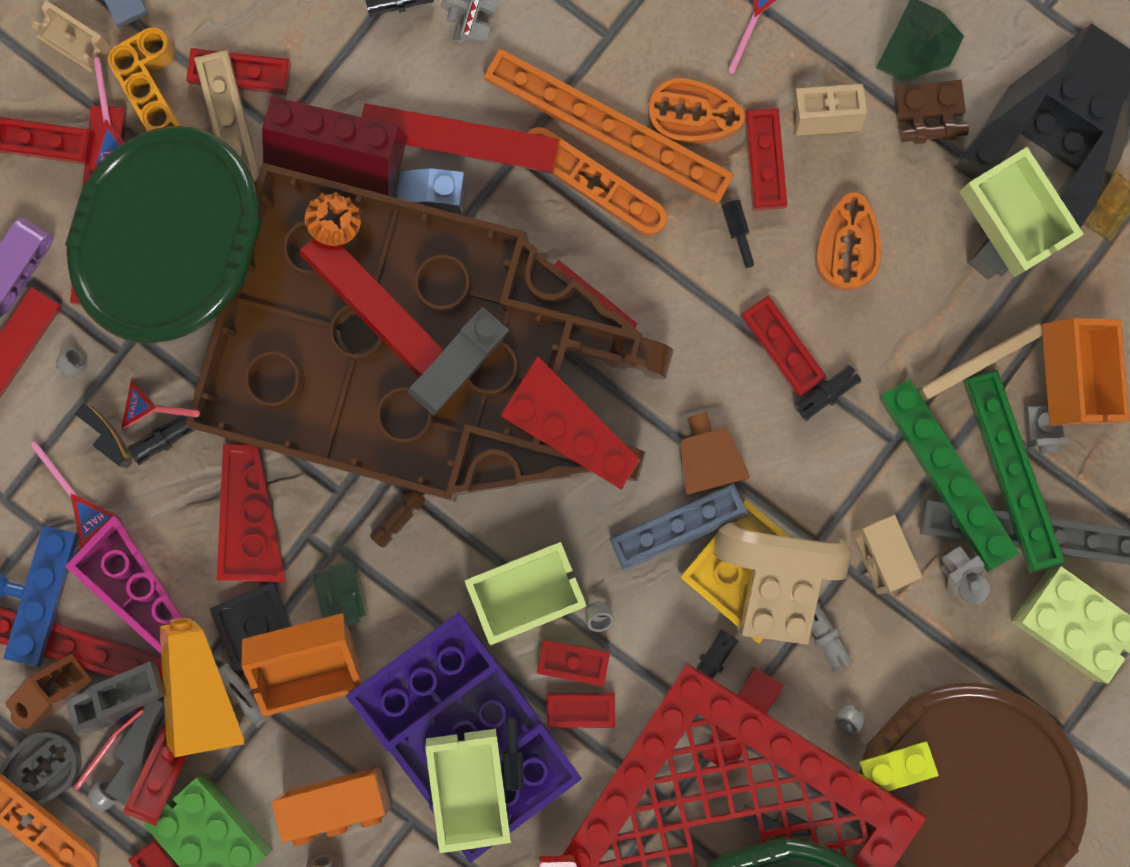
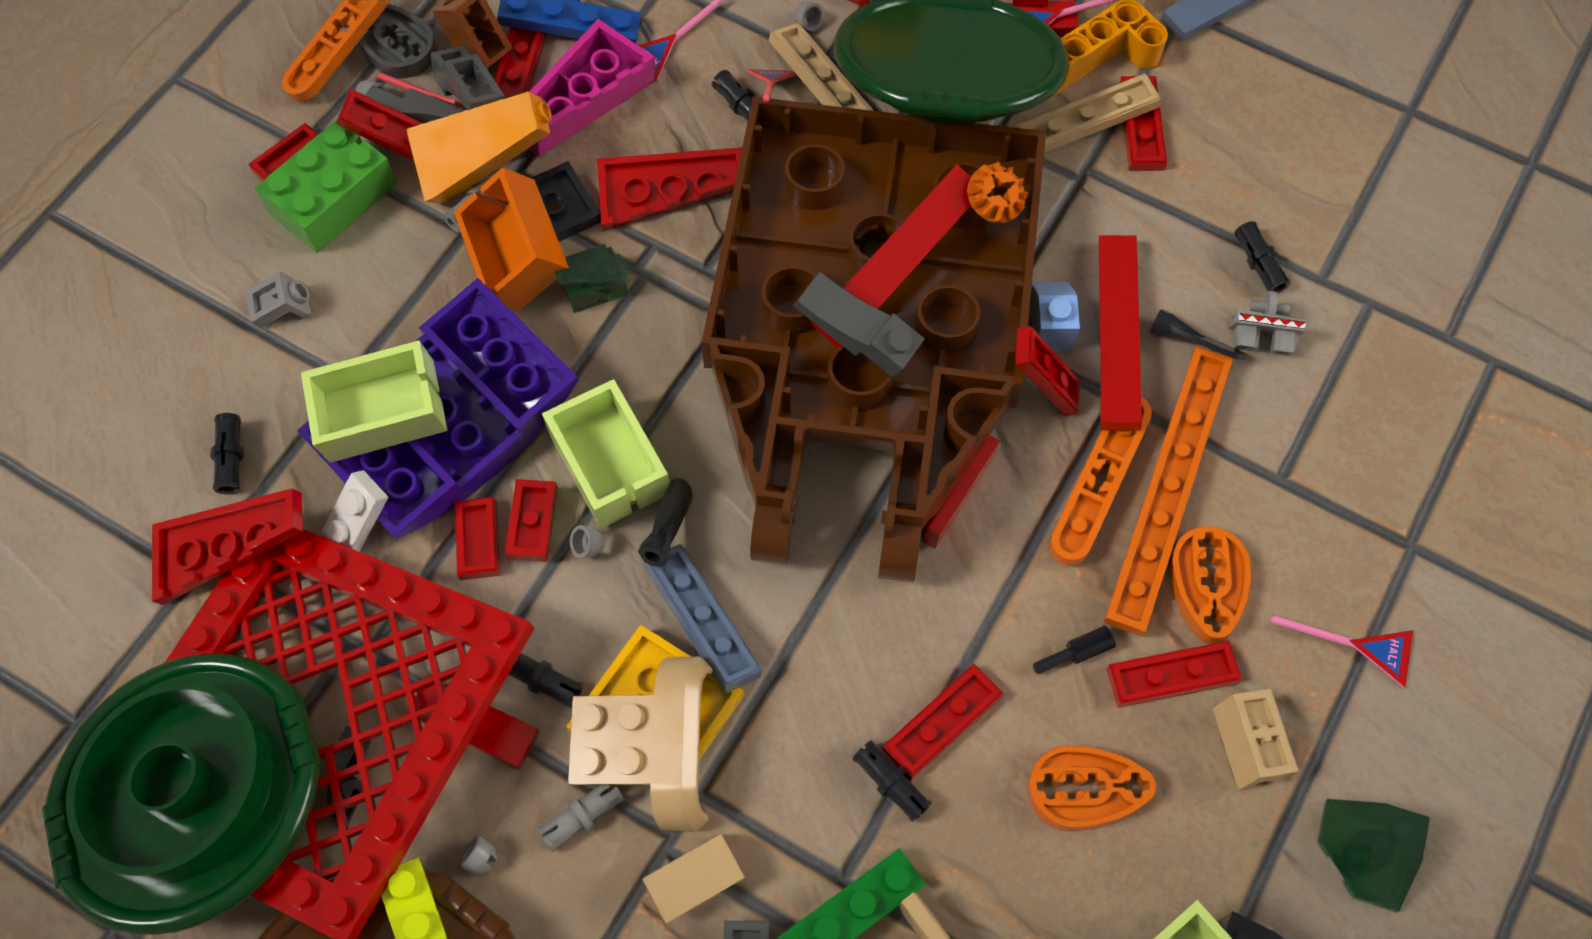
camera: 85 degrees right, 20 degrees down
(109, 441) = (734, 53): black slope -> none
(138, 364) = (815, 68): none -> tan tile
(332, 806) = (358, 286): orange piece -> none
(333, 145) = (1079, 208): dark red slope -> none
(397, 518) = (677, 321): reddish brown axle -> none
(458, 93) = (1172, 327): none -> black piece
(504, 207) = (1047, 371): none -> red tile
(513, 759) = (412, 453): black axle -> none
(555, 812) = (355, 511): none -> white plate
(565, 423) = (800, 447): red wing -> none
(615, 556) = (670, 515): none -> black piece
(709, 457) = (789, 642): dark orange torso -> none
(927, 102) = (1298, 873): reddish brown plate -> none

